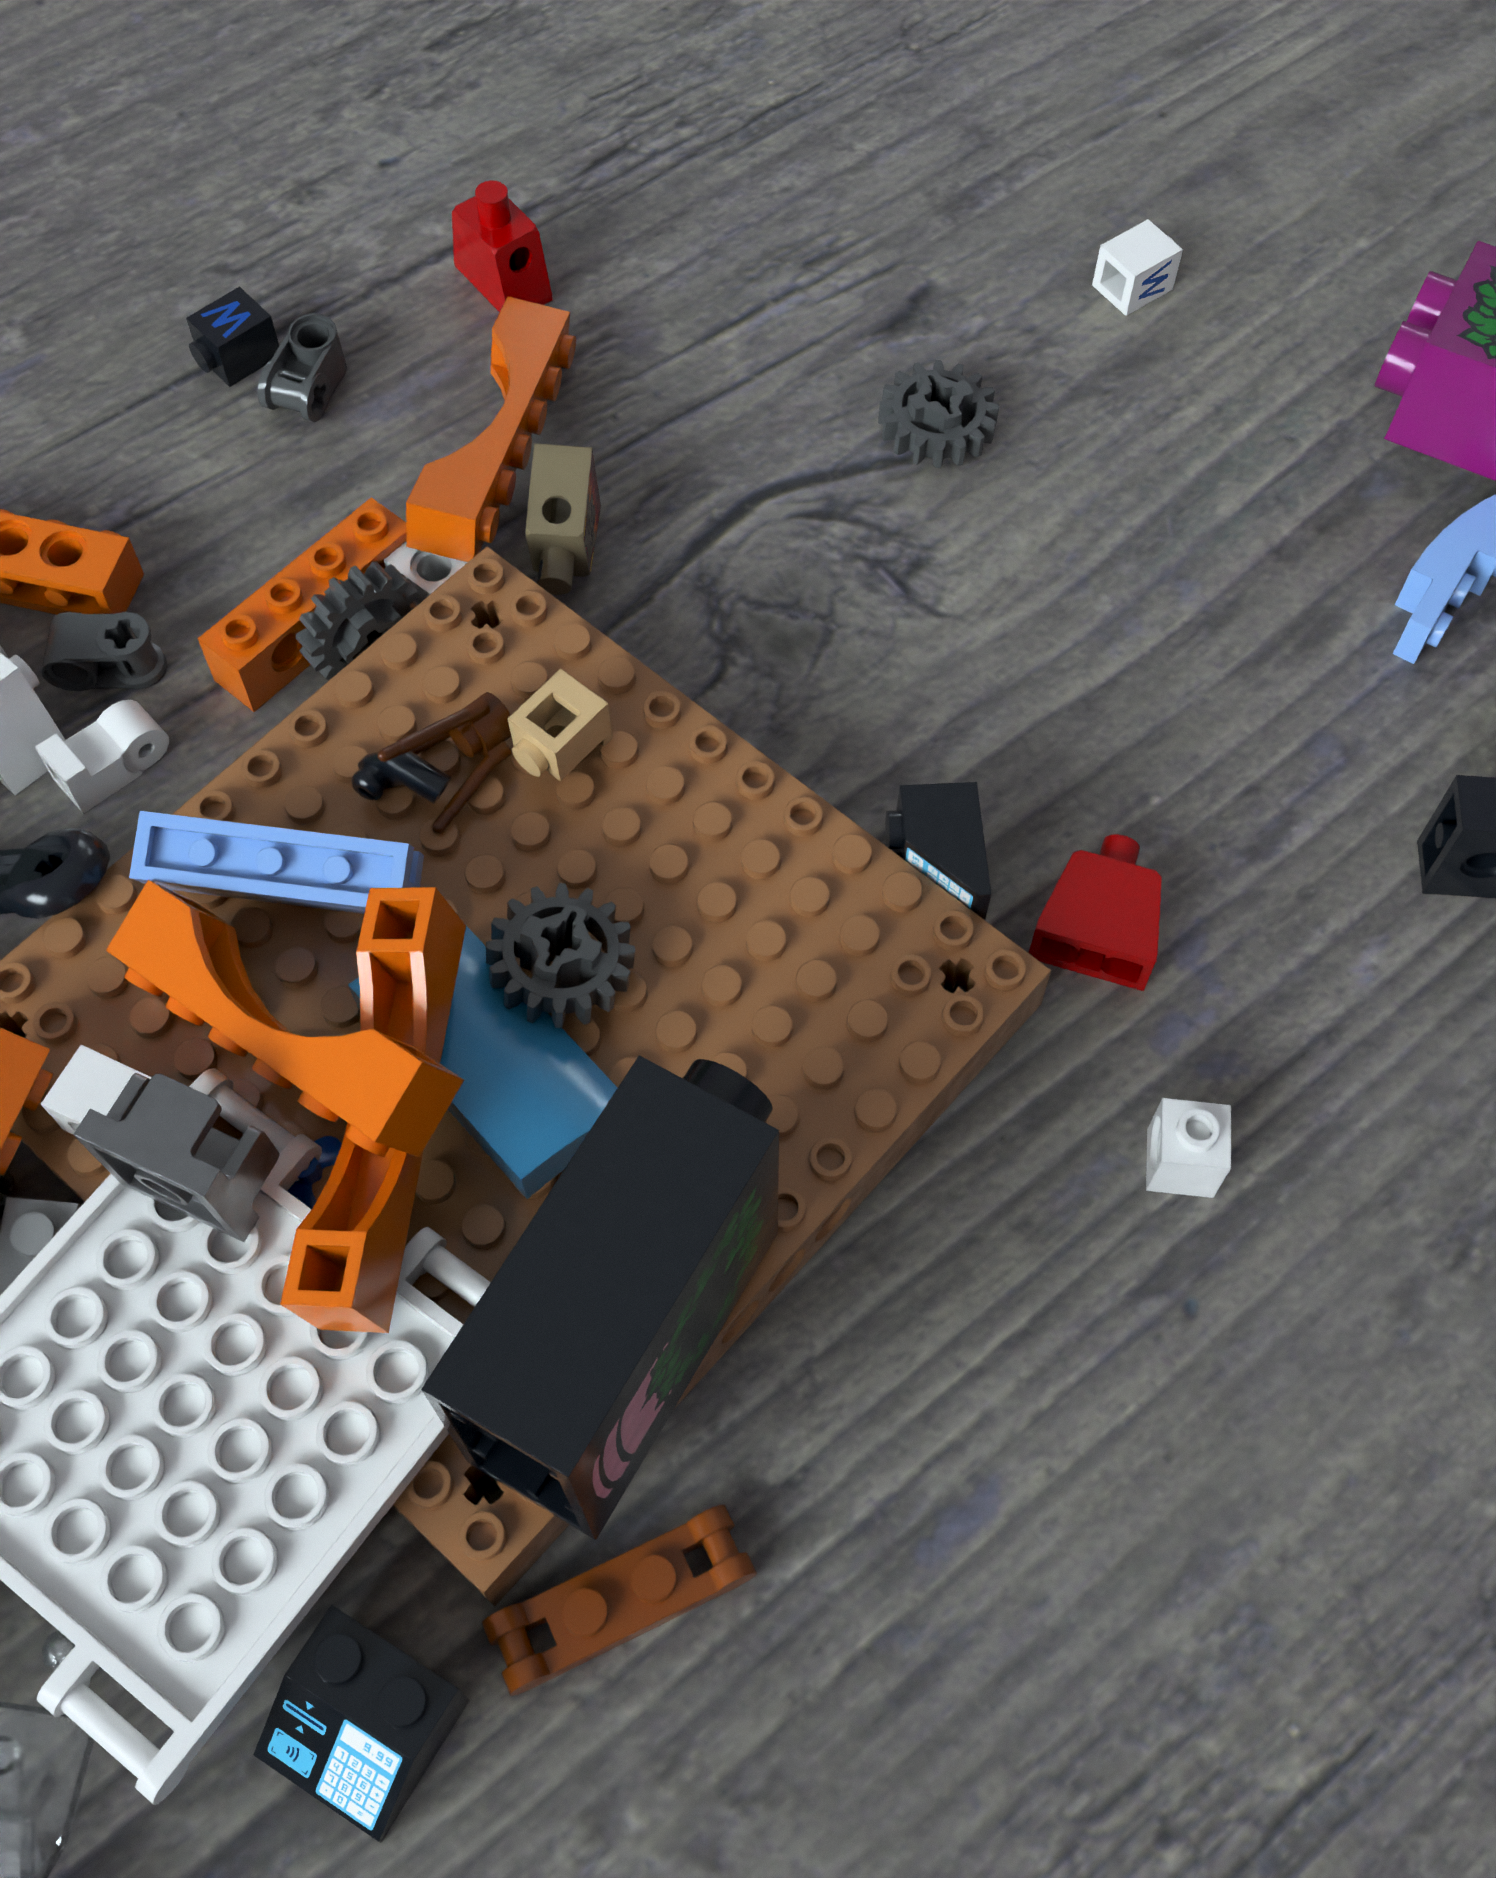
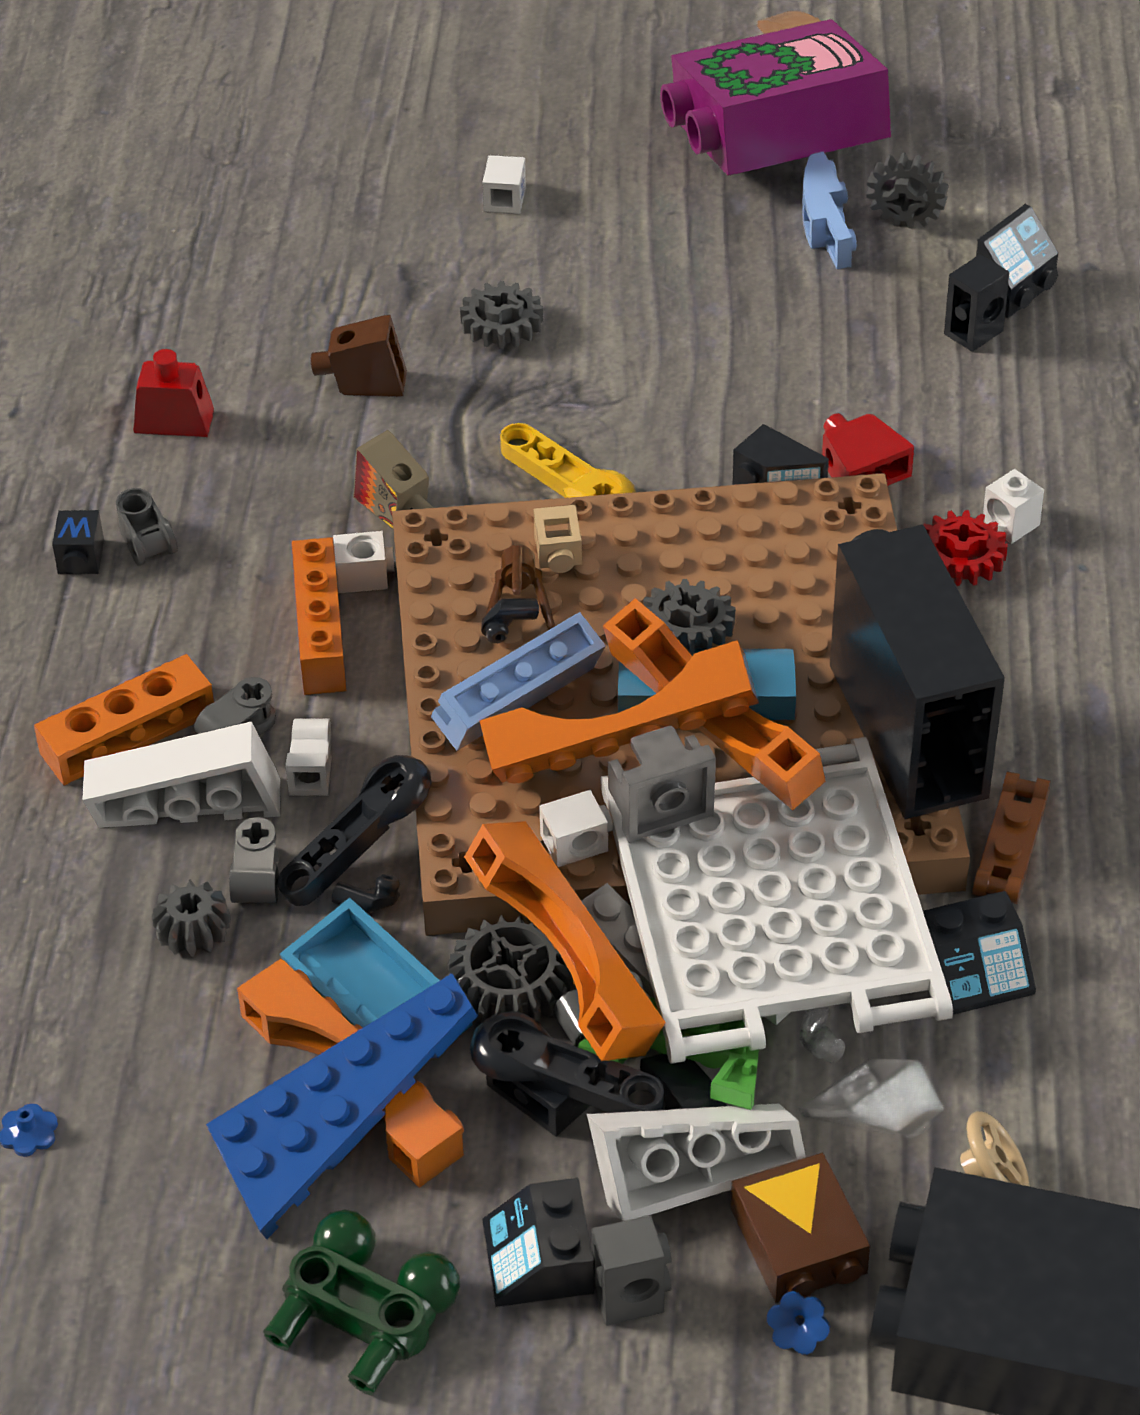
camera: 45 degrees left, 15 degrees down
(354, 616) = (366, 595): dark grey gear -> none
(461, 494) = (263, 436): orange arch -> none
(730, 356) = (364, 359): none -> reddish brown torso
(767, 664) = (558, 466): none -> yellow beam
(1058, 1173) = (968, 546): none -> red gear

